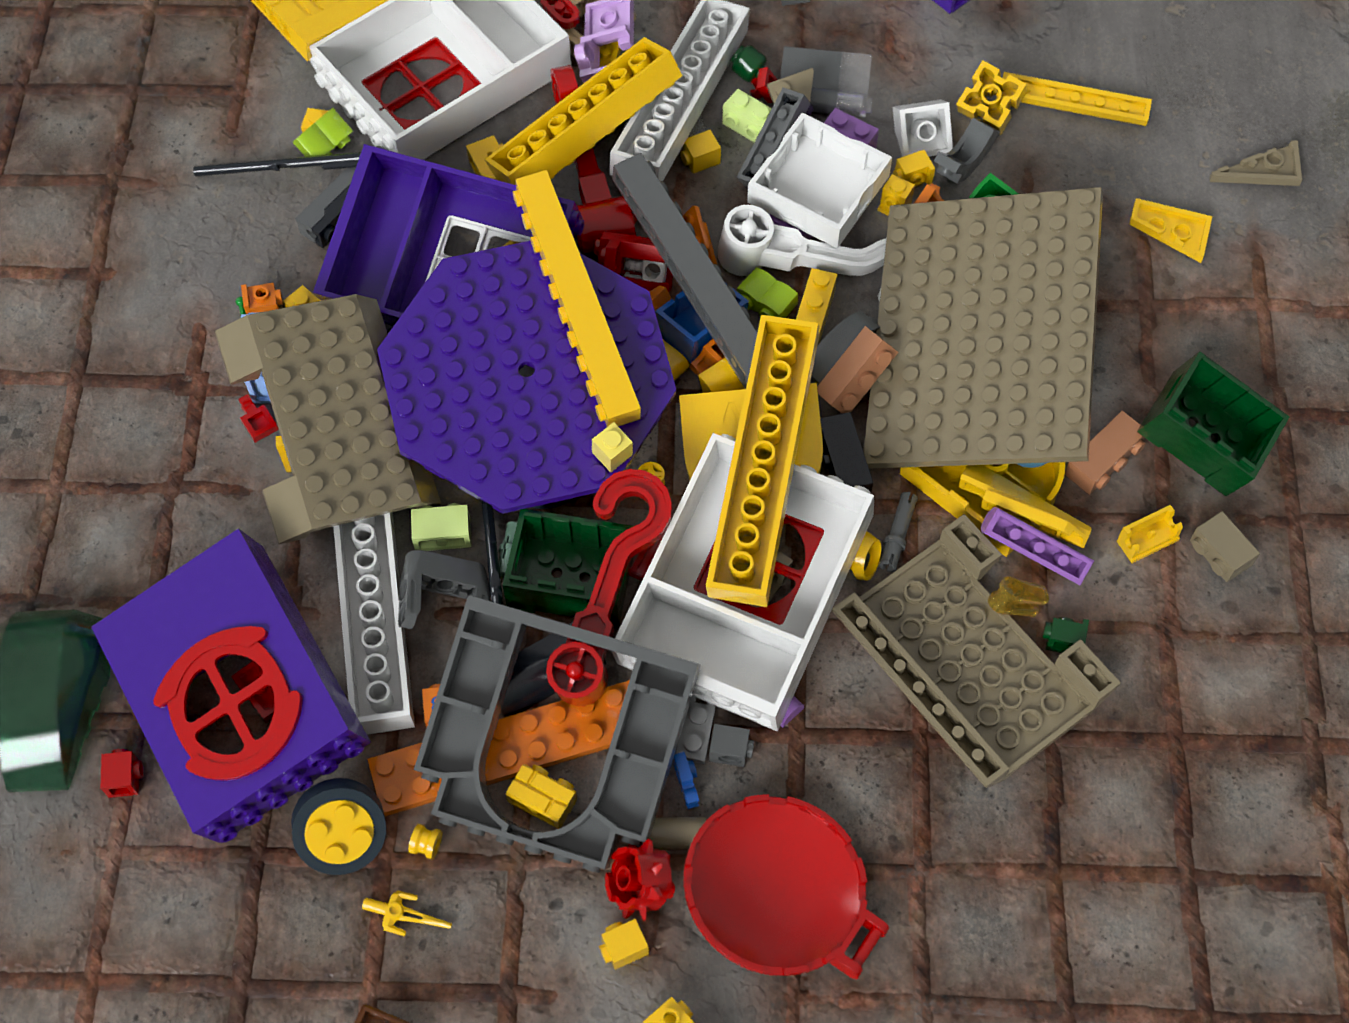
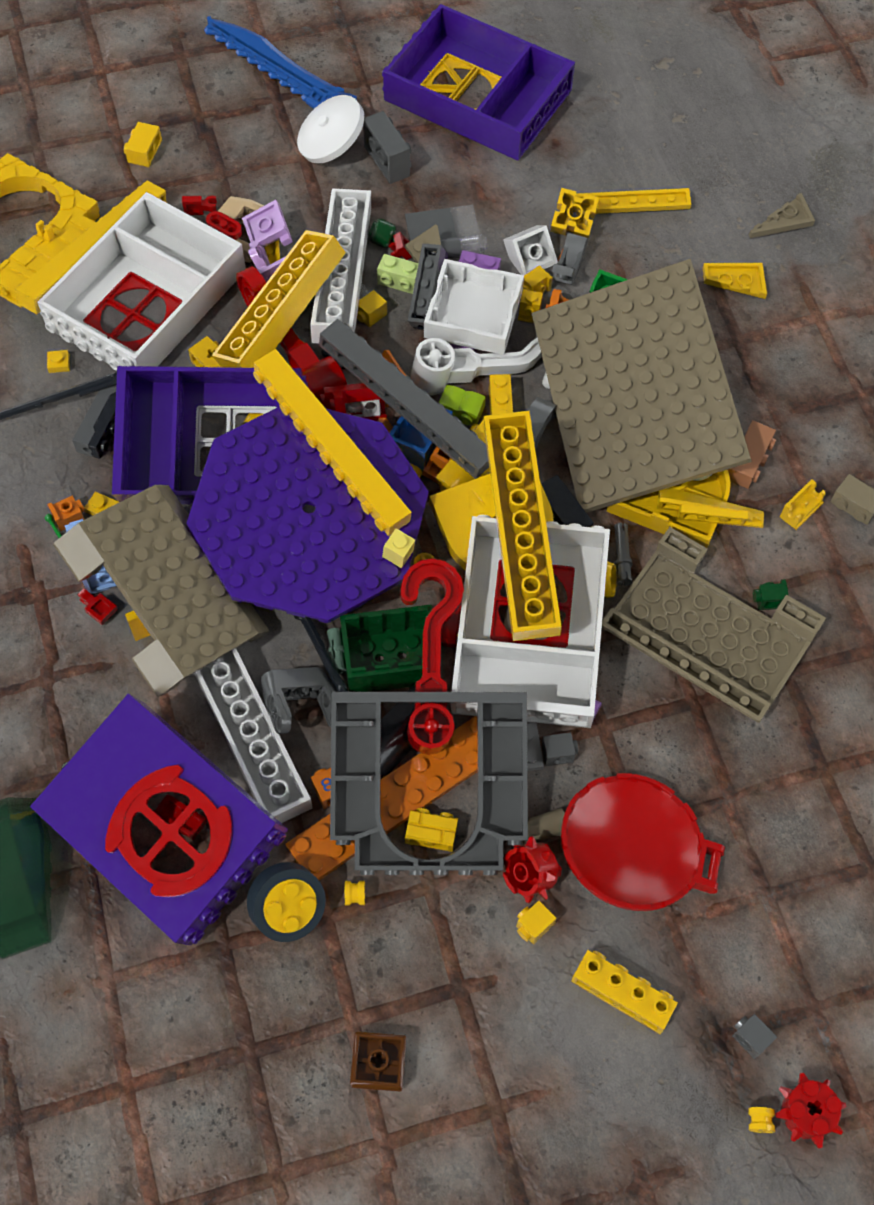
camera: 20 degrees left, 0 degrees up
(120, 773) = (91, 915): red brick -> none
(324, 135) = (70, 370): lime brick -> none
(395, 911) = (349, 953): yellow piece -> none
(441, 527) = (277, 649): yellowish green brick -> none
(685, 773) = (535, 785): blue plate -> none
(856, 371) = (554, 440): nougat brick -> none
(1018, 597) = (728, 577): clear yellow piece -> none
(1036, 545) = (728, 535): medium lavender brick -> none
(1220, 407) = (822, 412): dark green container -> none

